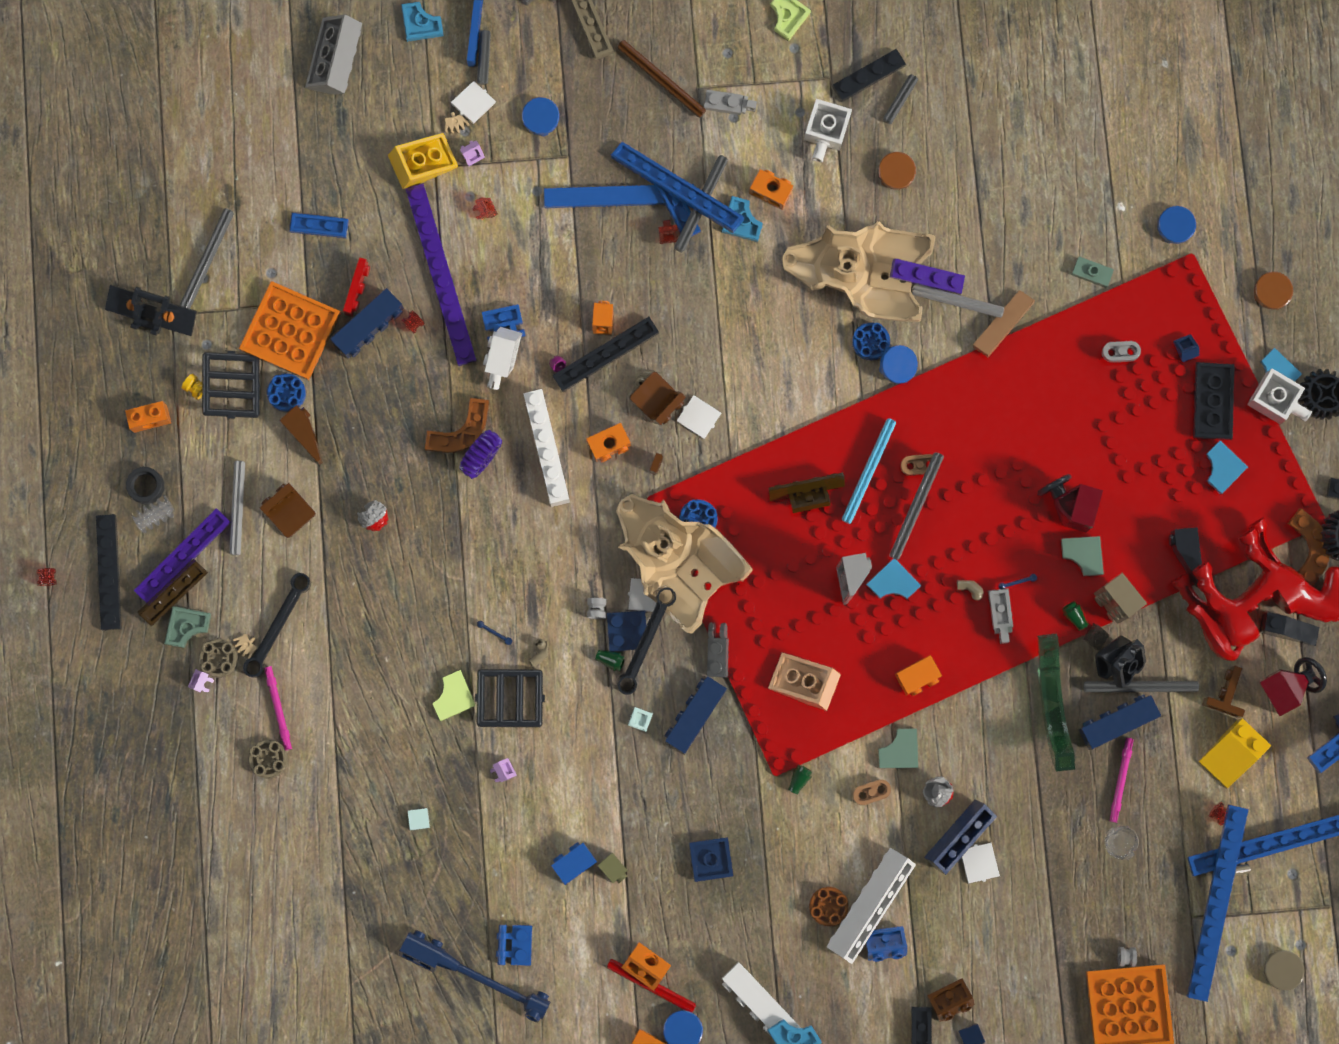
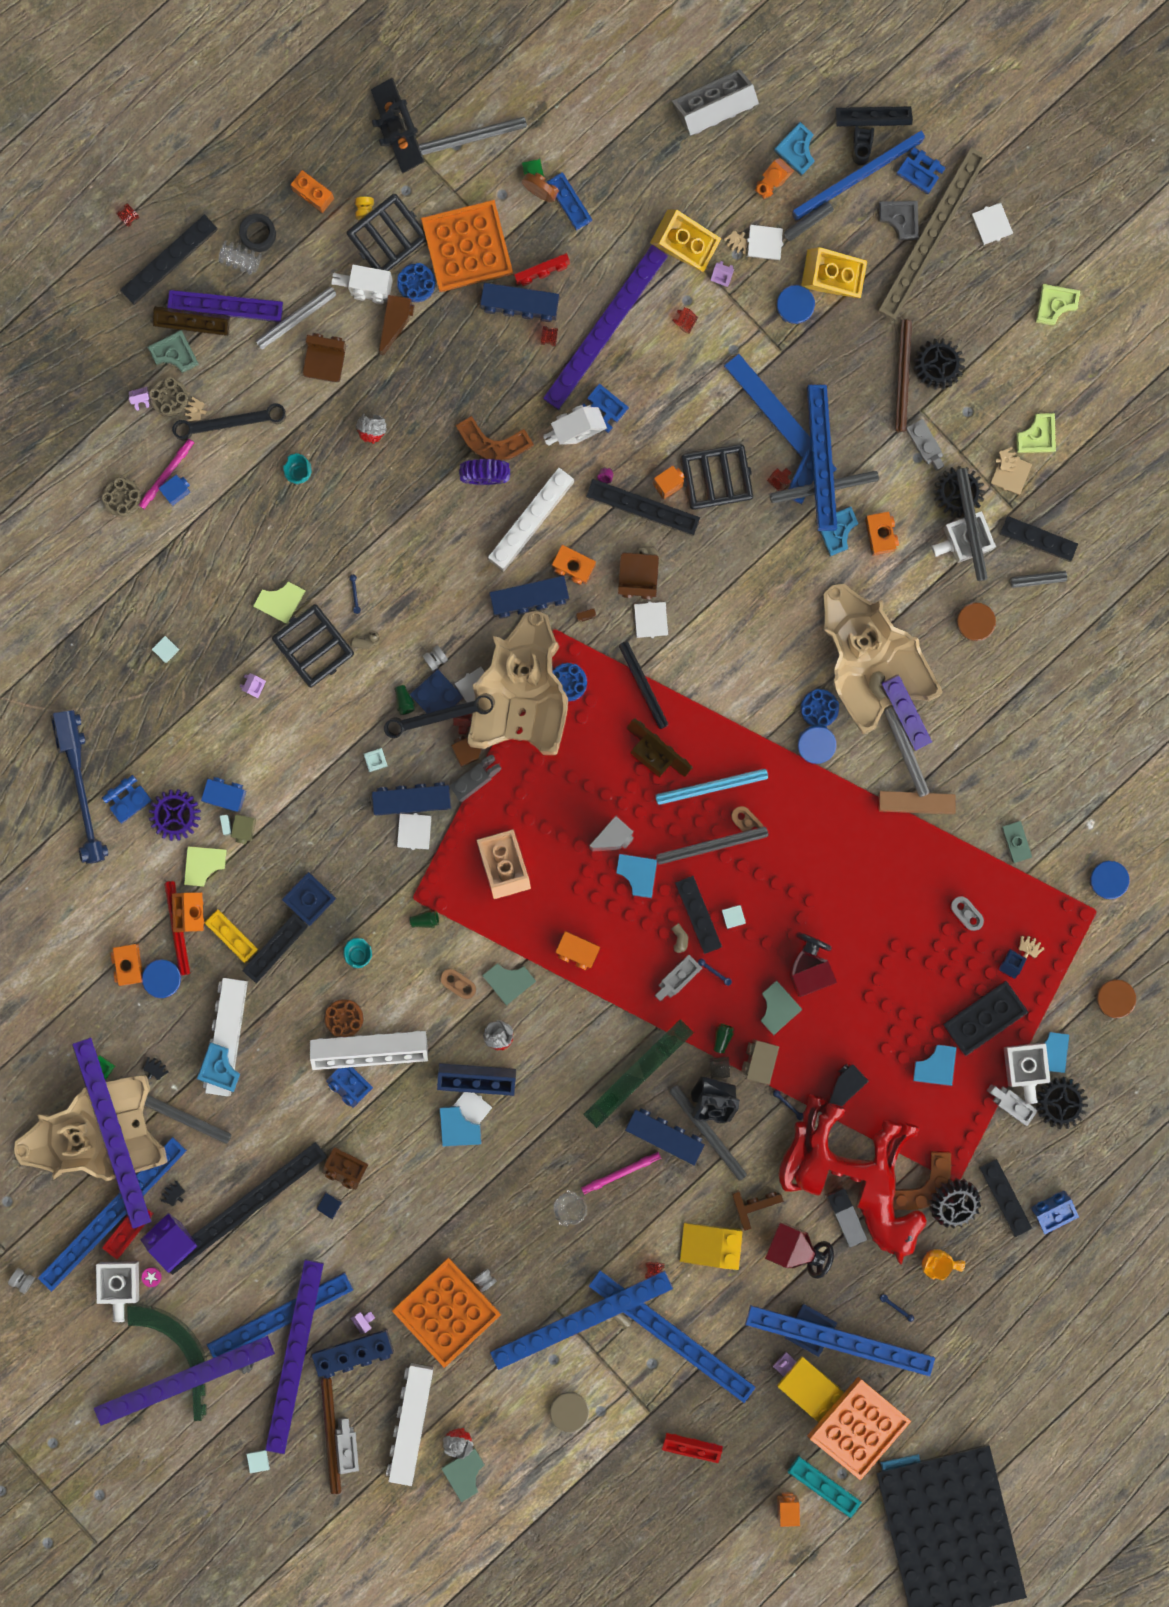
camera: 55 degrees right, 5 degrees up
(256, 430) = (366, 283): none -> white brick
(272, 234) = (532, 167): none -> green plate
(290, 238) = (539, 188): none -> dark orange tile
(296, 710) = (175, 489): none -> blue brick
(358, 600) = (297, 469): none -> teal hair
(429, 54) = (774, 176): none -> orange brick
(539, 69) = (833, 273): none -> yellow slope
(542, 918) = (181, 808): none -> dark purple gear
(599, 880) = (226, 825): none -> light aqua tile
(602, 277) = (722, 453): none -> black bar
(606, 496) = (529, 596): none -> dark blue brick
(614, 924) = (202, 863): none -> yellowish green tile
(662, 36) = (937, 348): none -> black gear
(665, 626) = (463, 722): none -> clear red tile
(688, 642) = (465, 753): none -> reddish brown slope
(692, 946) = (231, 935): none -> yellow tile
(721, 733) = (414, 831): none -> white piece
(730, 918) = (275, 948): none -> black plate
(746, 461) = (643, 685): none -> black axle
(778, 106) = (945, 501): none -> black gear
(785, 854) = (357, 953): none -> teal hair
(788, 52) = (1005, 460): none -> tan piece
(802, 57) = (1012, 481): none -> tan piece
(821, 113) = (971, 523): none -> dark grey axle
(887, 283) = (875, 685): none -> dark tan arm
(962, 559) = (698, 915): none -> black plate
(985, 533) = (733, 916): none -> light aqua tile
(989, 883) = (457, 1129): none -> dark azure tile
(1181, 604) = (799, 1115): none -> dark blue hinge
(1183, 325) = (1029, 948): none -> tan piece
(1297, 432) = (1013, 1104): none -> light grey hinge

